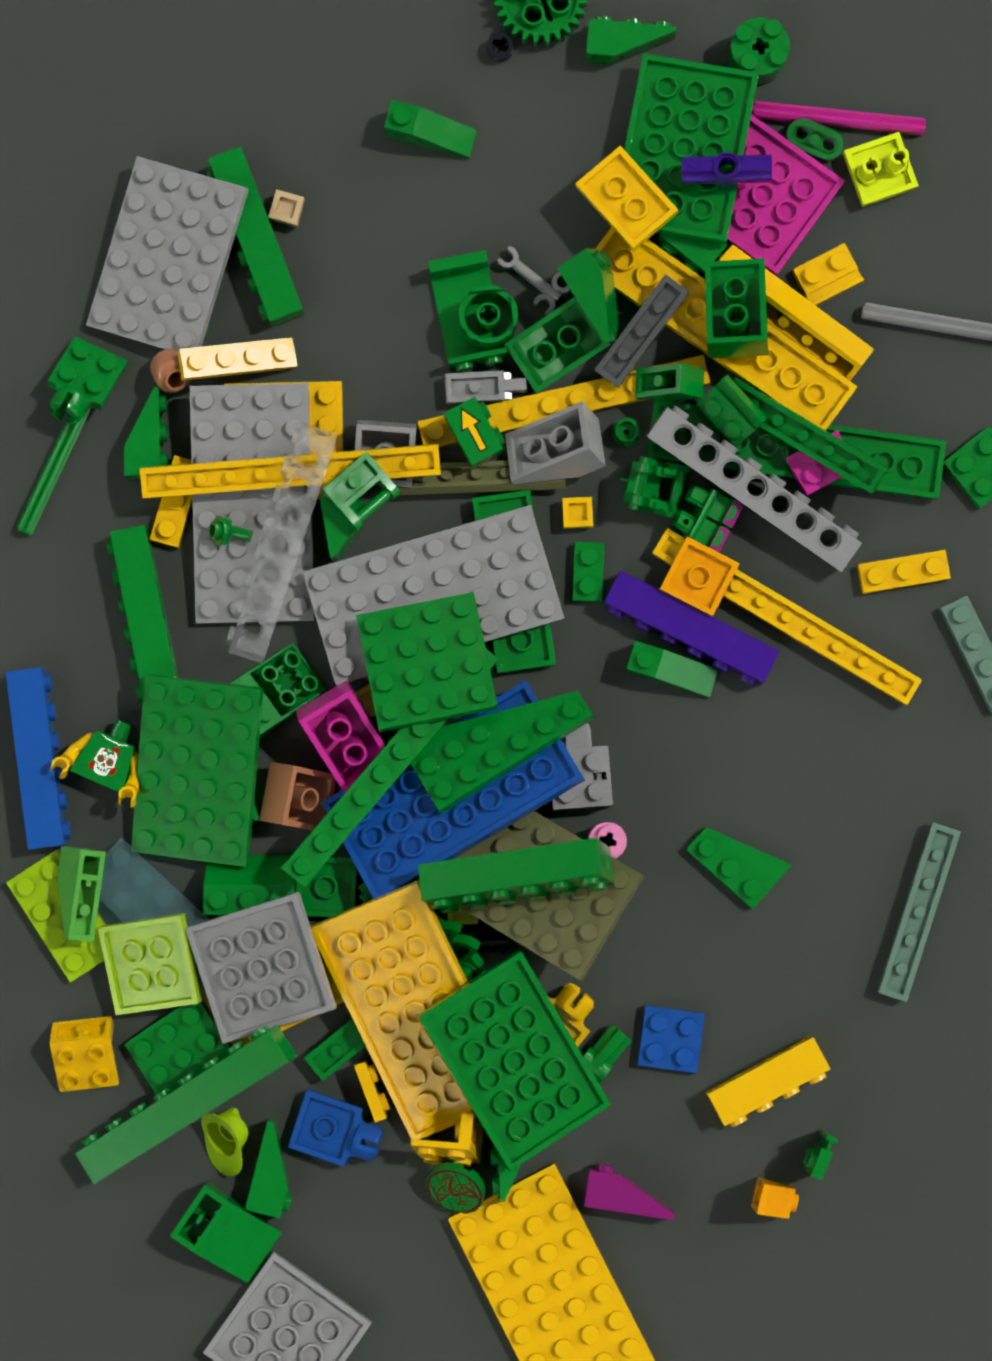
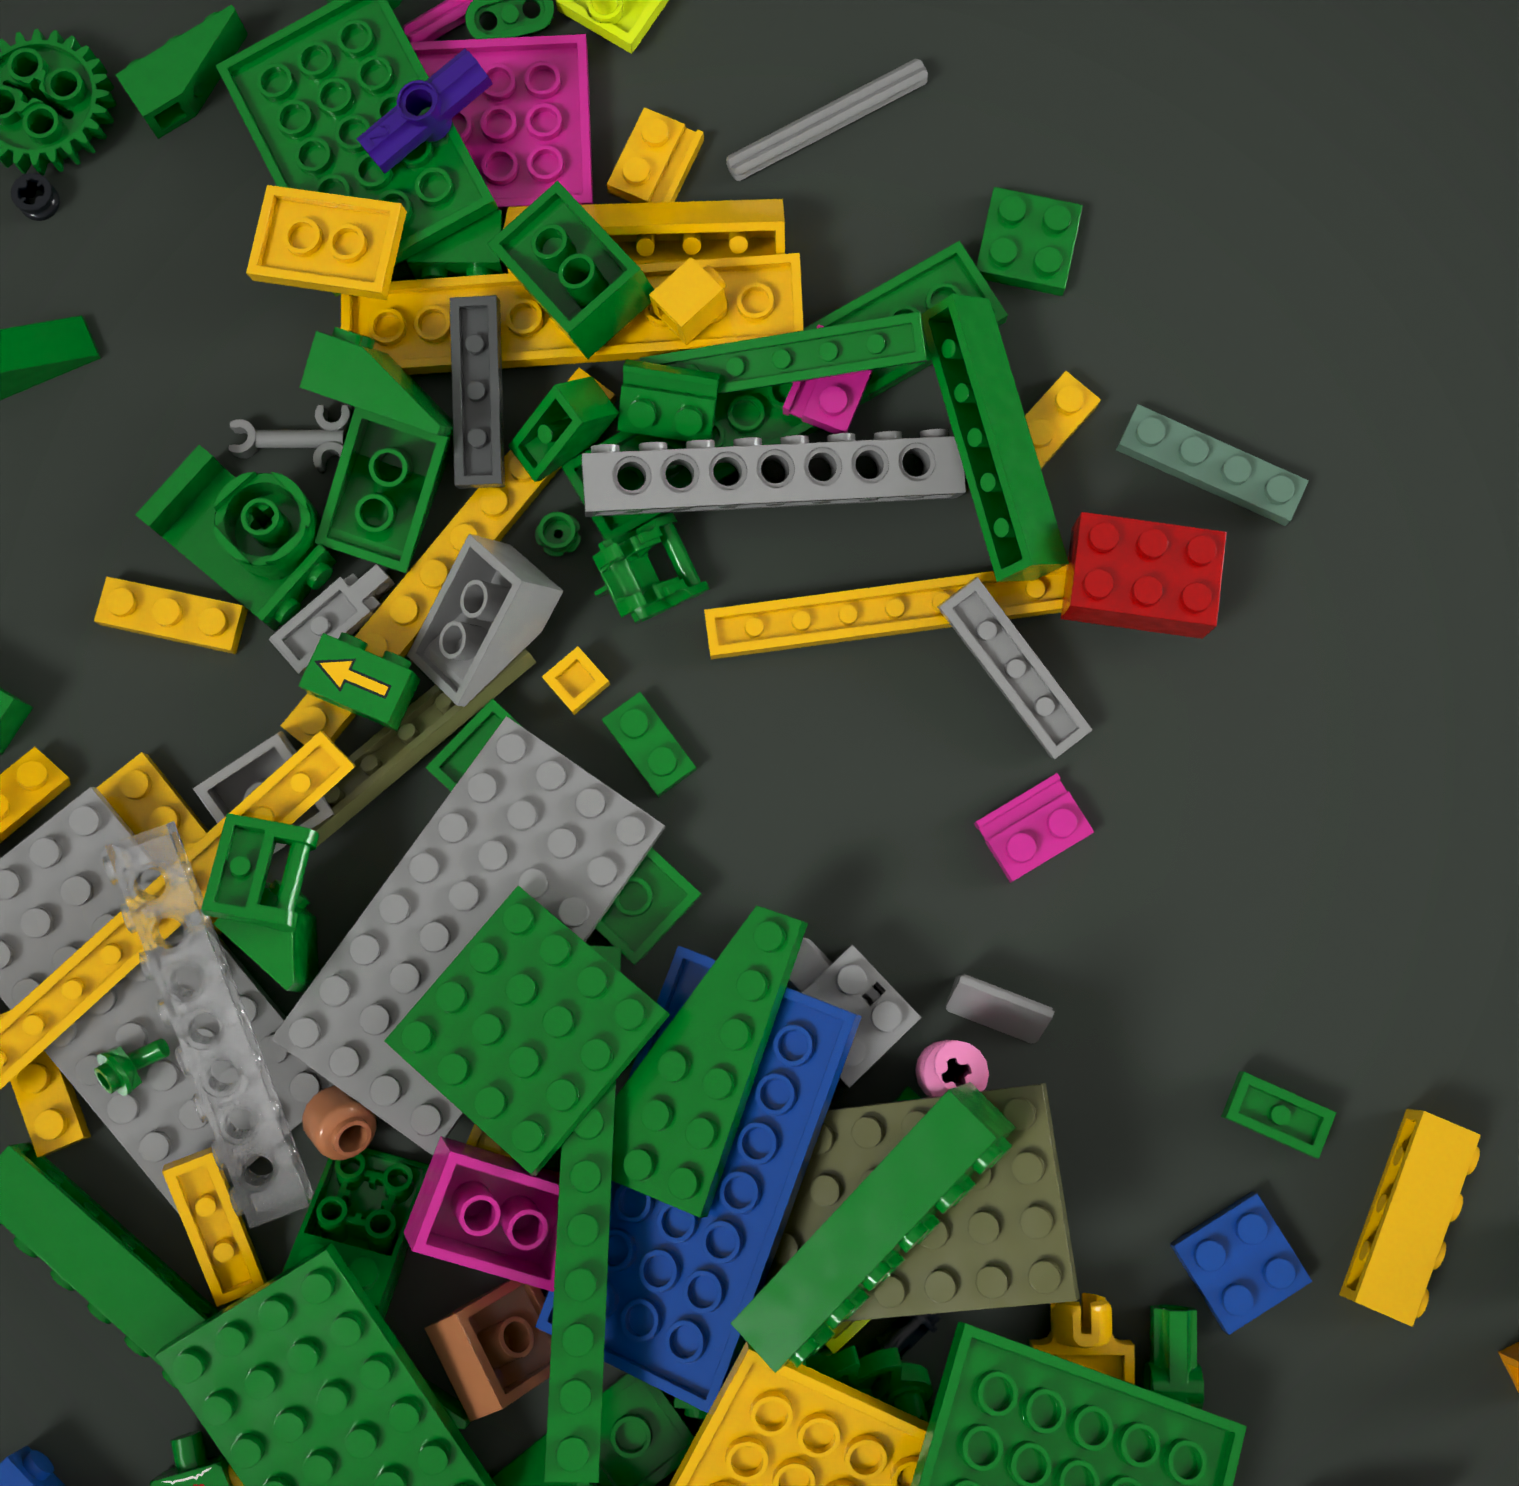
camera: 35 degrees left, 5 degrees down
(210, 637) = (214, 1227): none -> yellow plate
(302, 636) = (338, 1124): none -> nougat head
(405, 322) = (171, 615): none -> yellow plate
(653, 832) = (998, 1008): none -> light grey slope
(671, 669) = (850, 783): green slope -> none
(691, 628) = (836, 711): dark purple brick -> none
(699, 576) = (794, 637): light orange plate -> none
(710, 518) = (749, 557): green hips -> none
(738, 866) = (1140, 964): green wing -> none
(741, 761) = (1033, 827): none -> dark pink plate
(745, 987) = (1278, 1114): none -> green plate
(782, 369) = (689, 299): none -> yellow brick
(794, 677) = (1014, 668): none -> light grey plate
(875, 556) = (993, 439): none -> green brick
(893, 682) = (1144, 575): none -> red brick
(918, 912) = (1411, 841): sand green plate -> none

